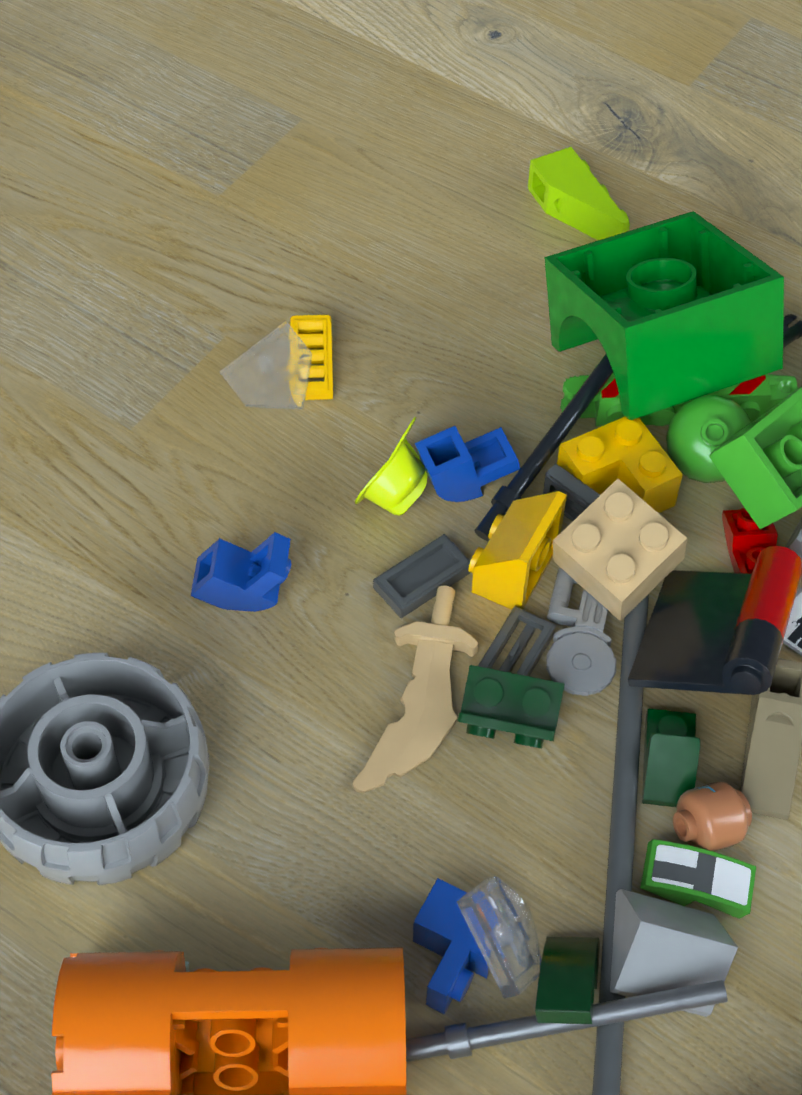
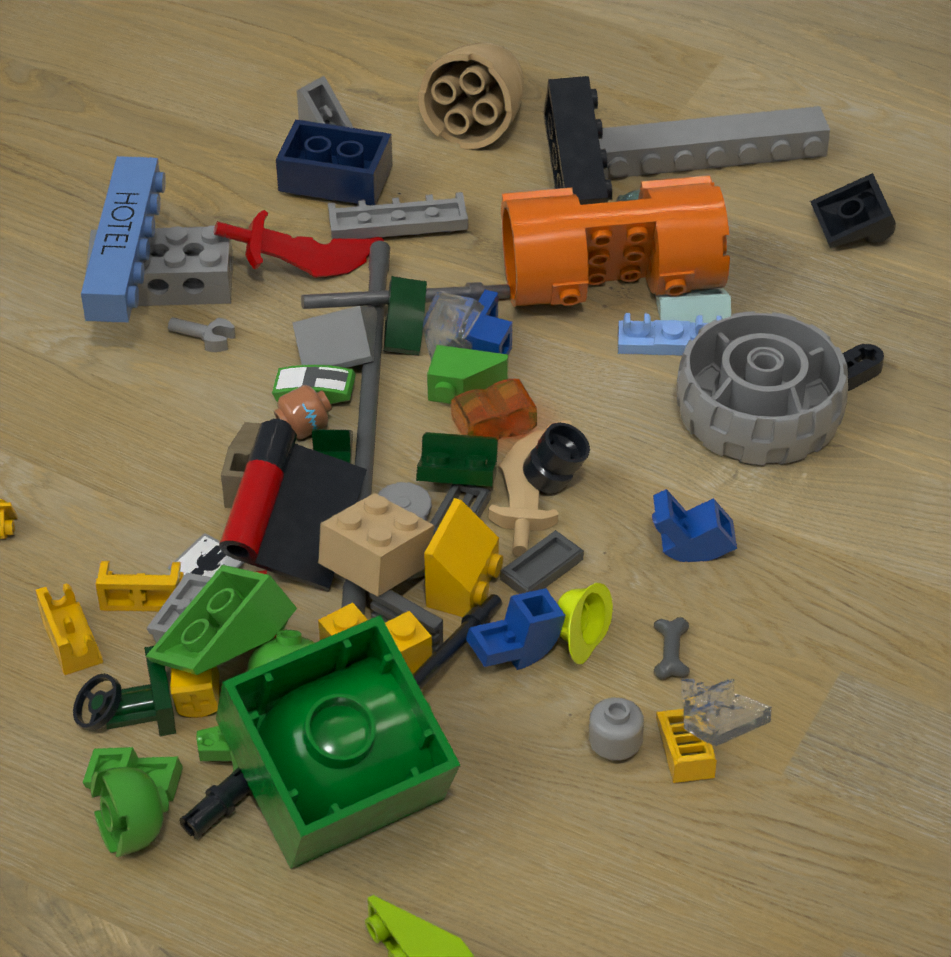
camera: 175 degrees right, 10 degrees down
(182, 922) = (656, 336): none -> light blue plate
(304, 446) = (671, 663): none -> dark grey piece
(379, 359) = (616, 728): none -> light grey head
(387, 678) = (556, 458): none -> black wheel
(455, 788) = (495, 412): none -> clear orange brick
(486, 851) = (462, 370): none -> bright green slope

